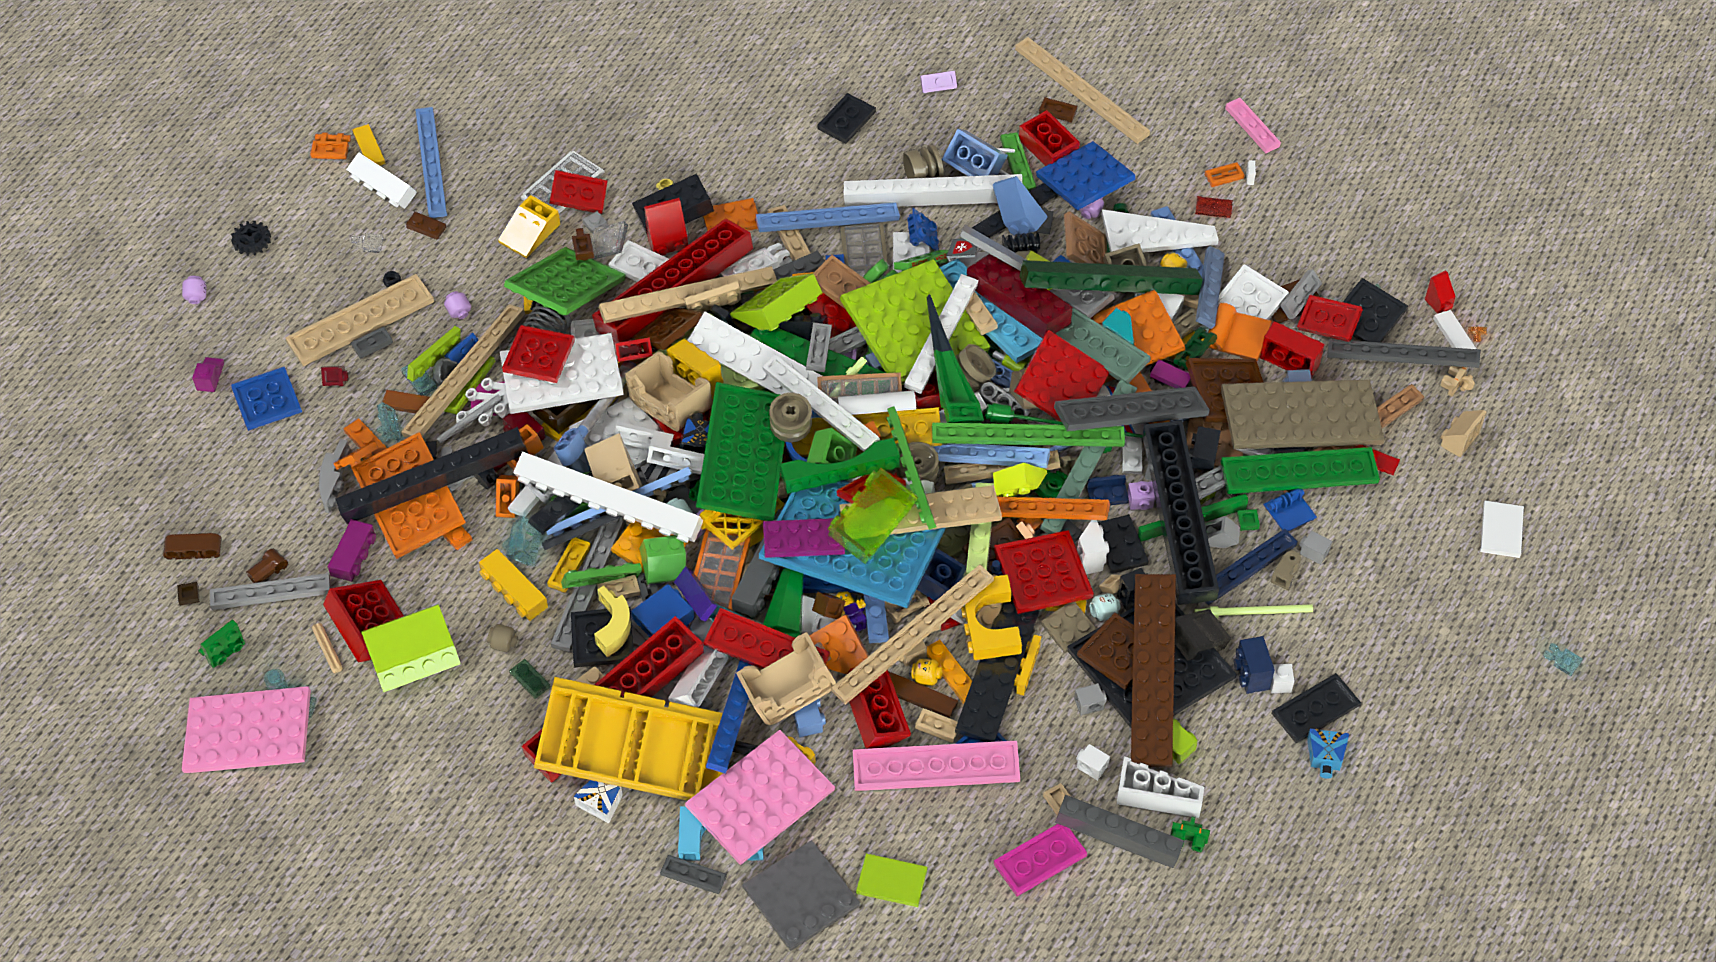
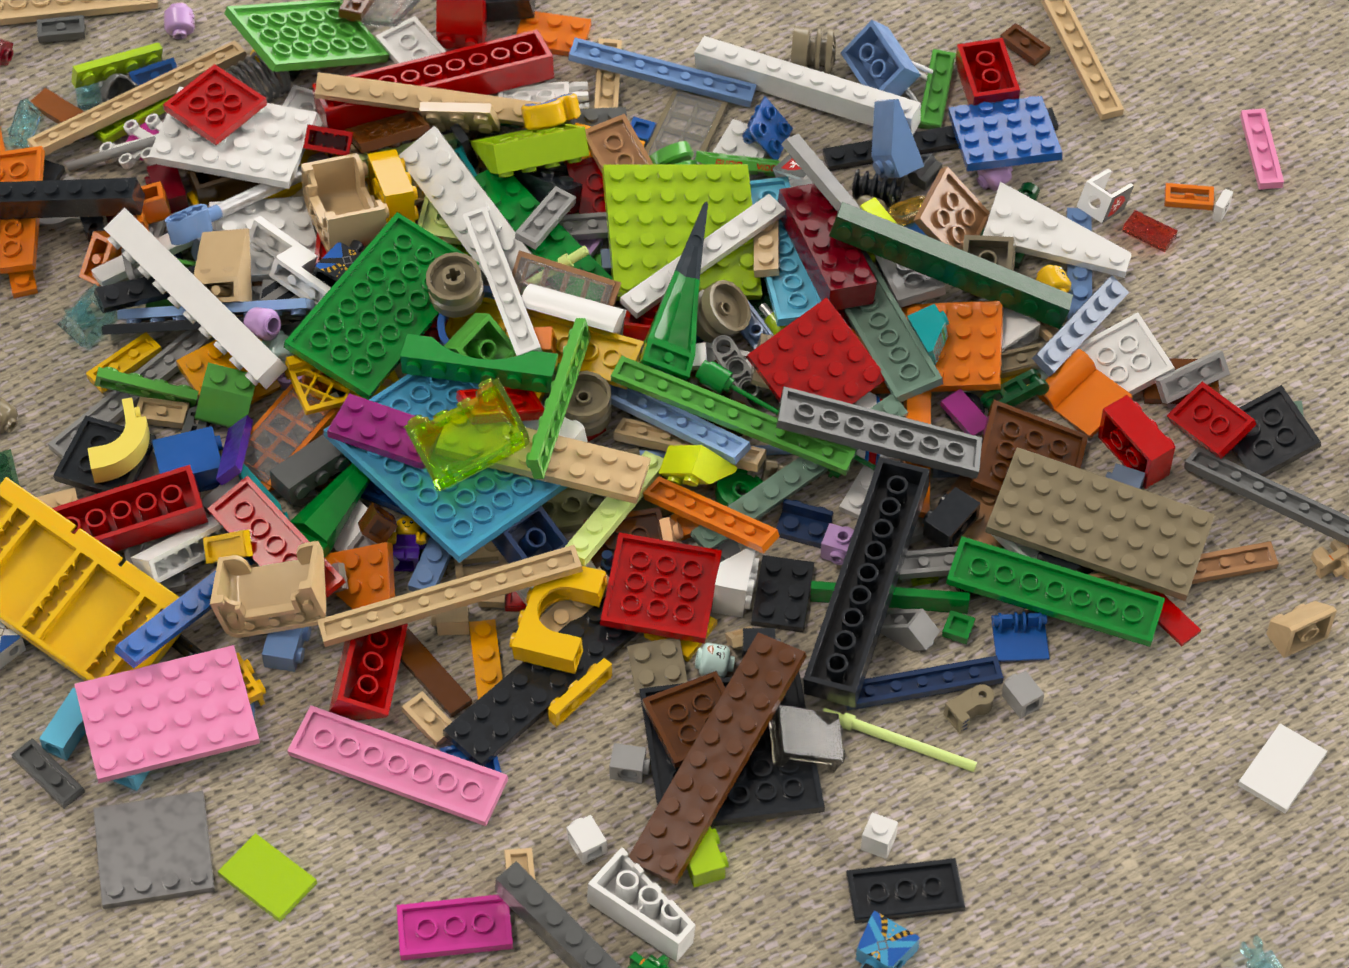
camera: 25 degrees right, 0 degrees up
(513, 585) = (47, 360): yellow brick -> none
(666, 493) = (263, 323): none -> lavender head
(732, 663) = (227, 545): none -> yellow tile
(775, 274) = (551, 113): none -> yellow animal
(926, 672) = (454, 650): yellow head -> none
(1052, 249) = (905, 211): none -> clear yellow plate
(1180, 195) = (1110, 203): none -> white piece
(1254, 665) = (850, 804): dark blue brick -> none

